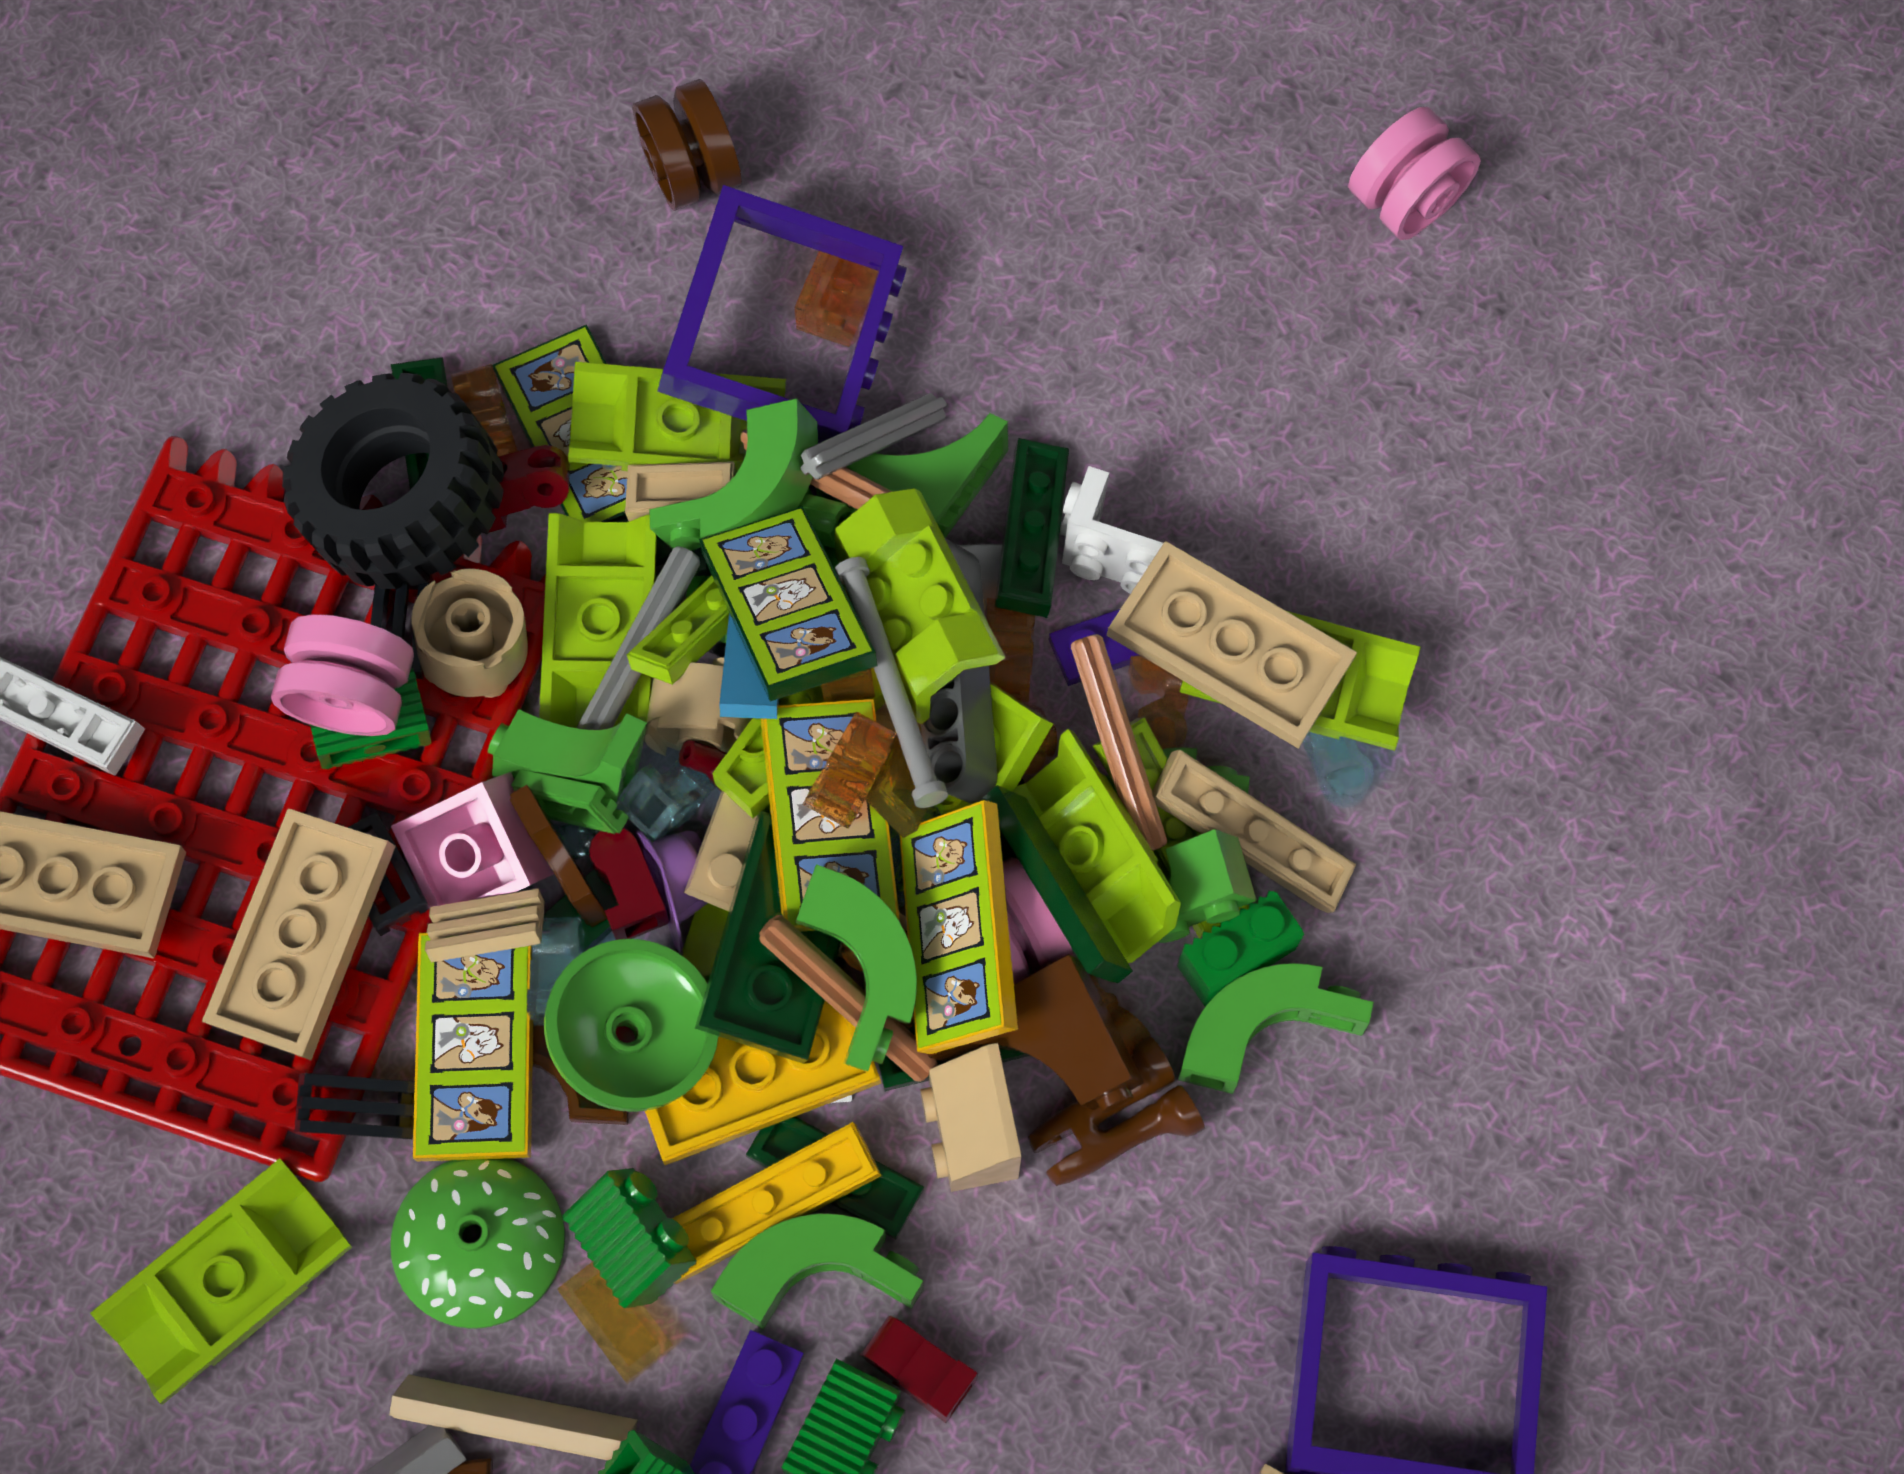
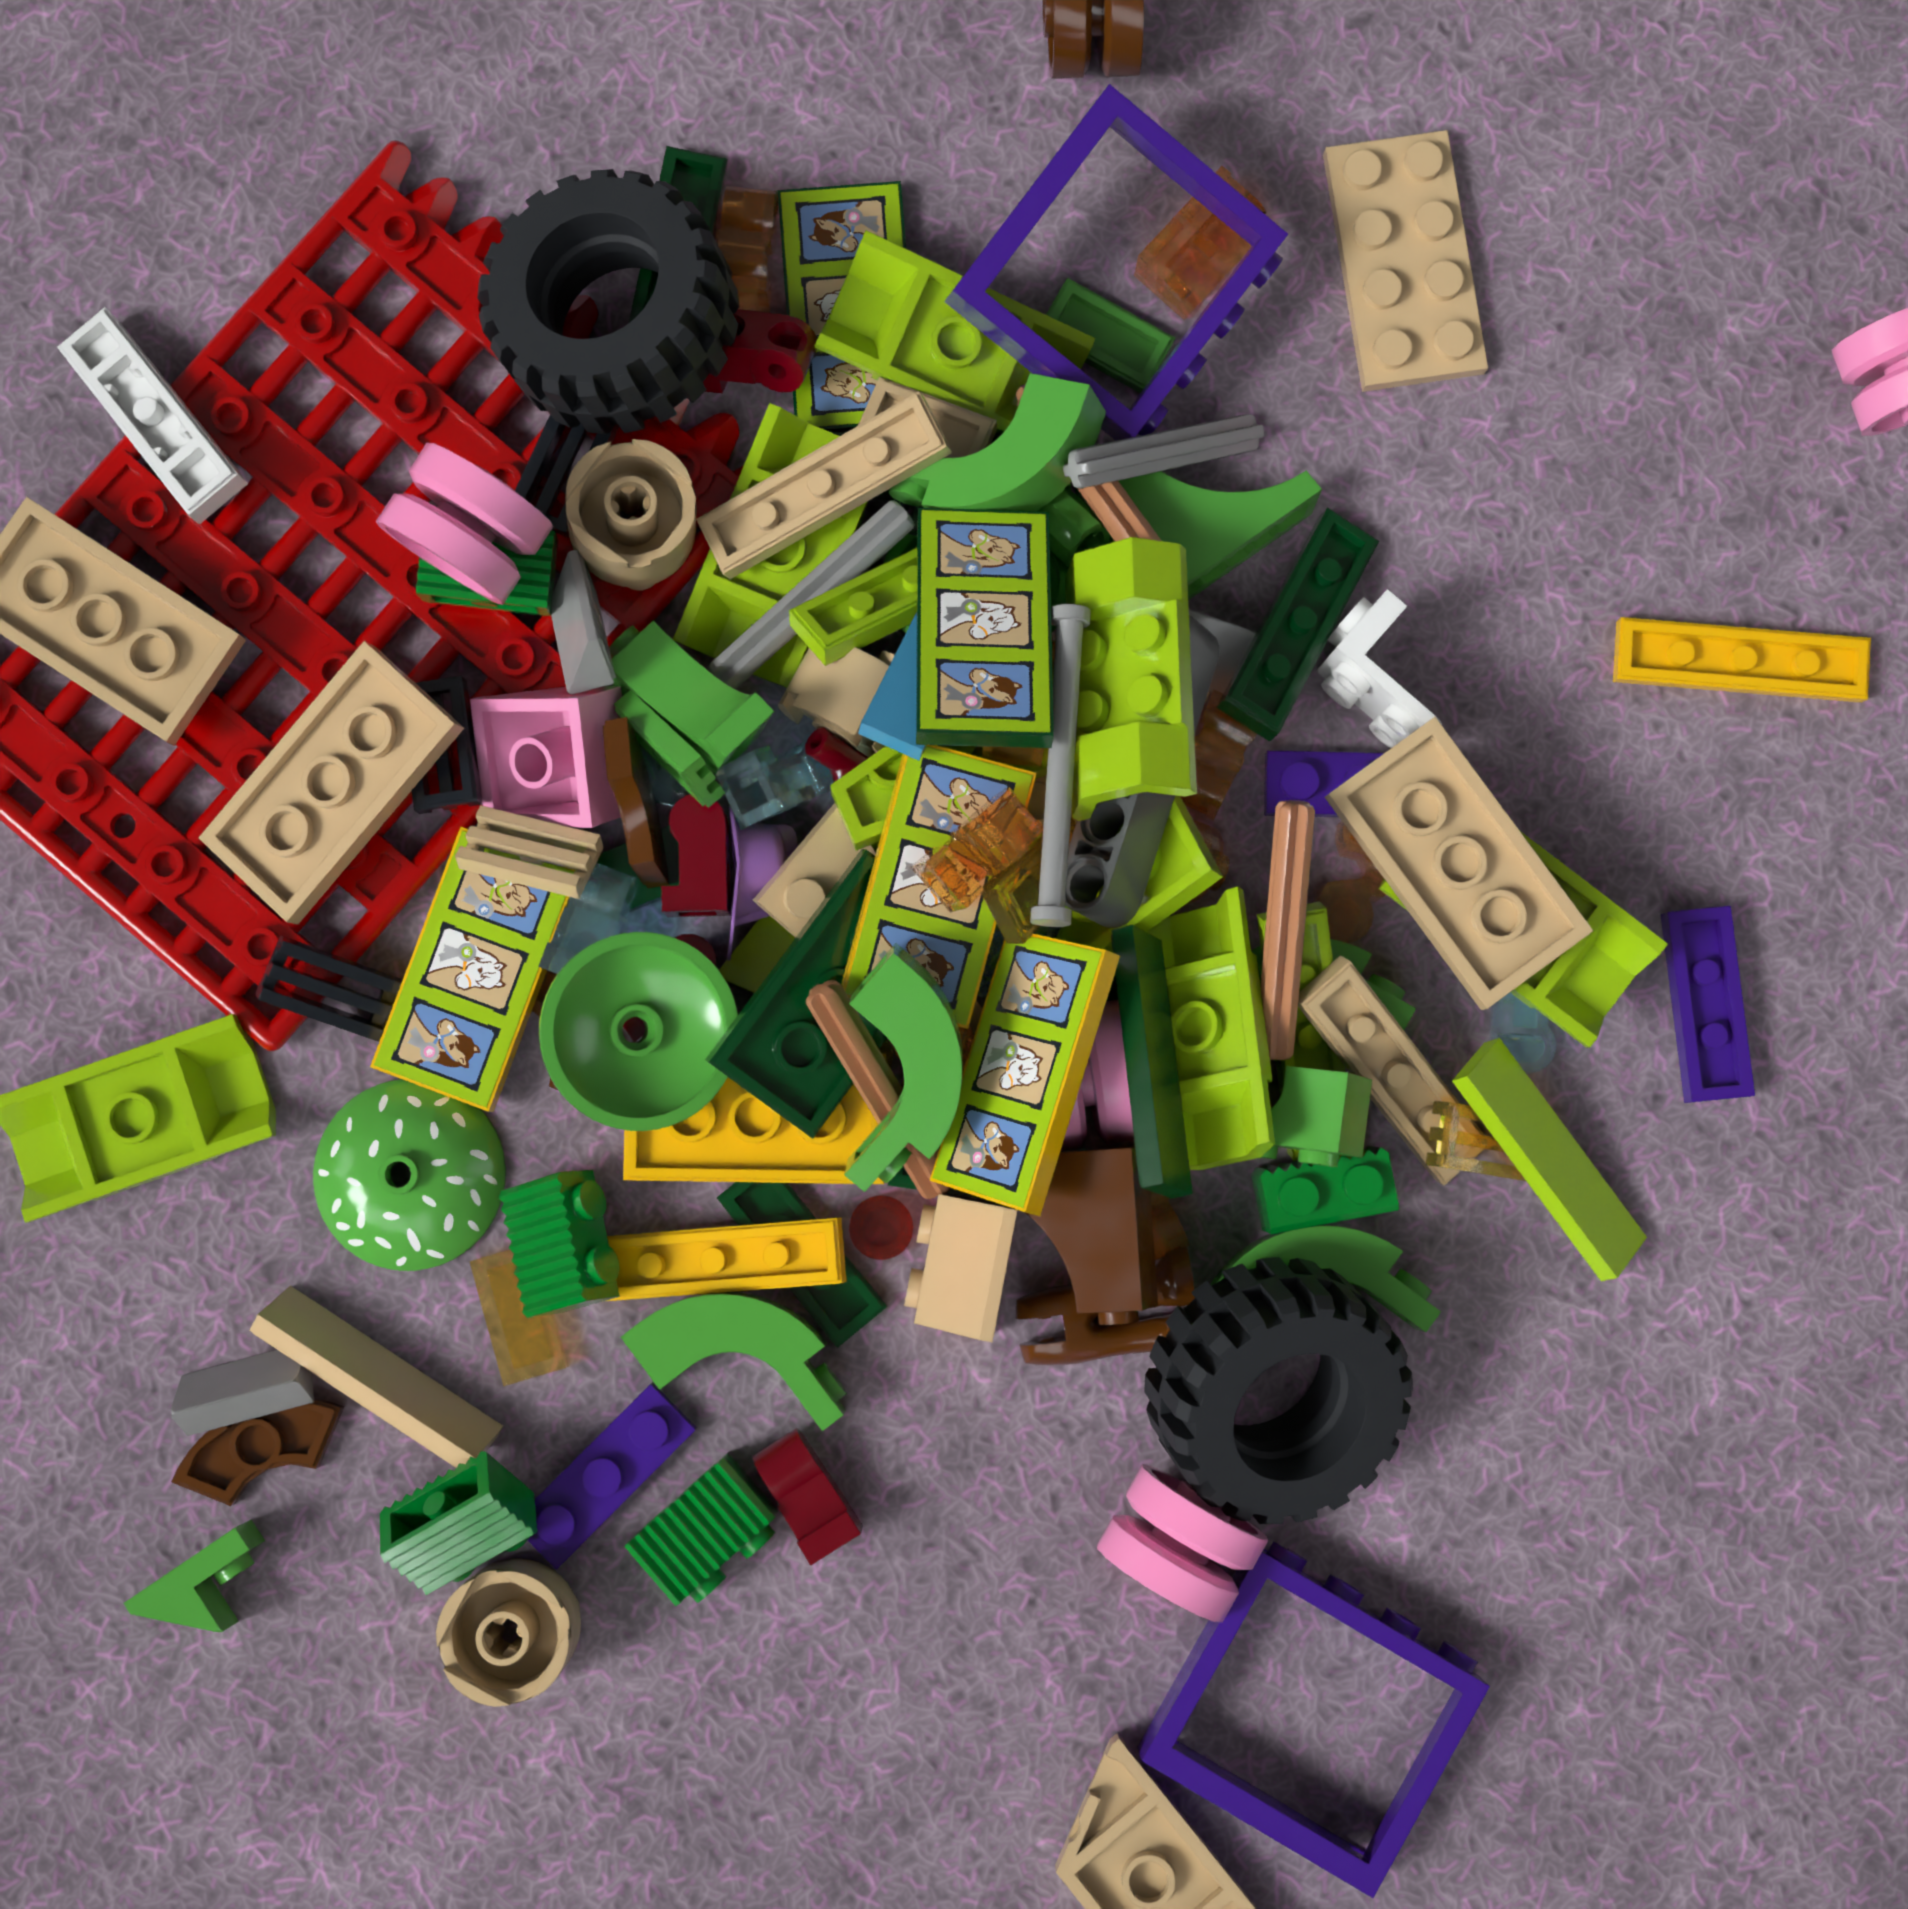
camera: 20 degrees right, 15 degrees up
(461, 735) = (580, 629): none -> light grey slope
(616, 555) = (824, 485): none -> tan tile
(808, 378) = (1124, 343): none -> bright green tile
(892, 1125) = (881, 1227): none -> clear red plate
(1001, 244) = (1405, 261): none -> tan plate
(1246, 1269) = (1177, 1550): none -> bright pink wheel
(1320, 865) = (1448, 1136): none -> clear yellow tile
(1332, 1124) = (1317, 1446): none -> black tyre
(1384, 432) = (1742, 659): none -> yellow tile
(1407, 853) = (1550, 1159): none -> lime tile
(1476, 693) = (1707, 1004): none -> dark purple plate

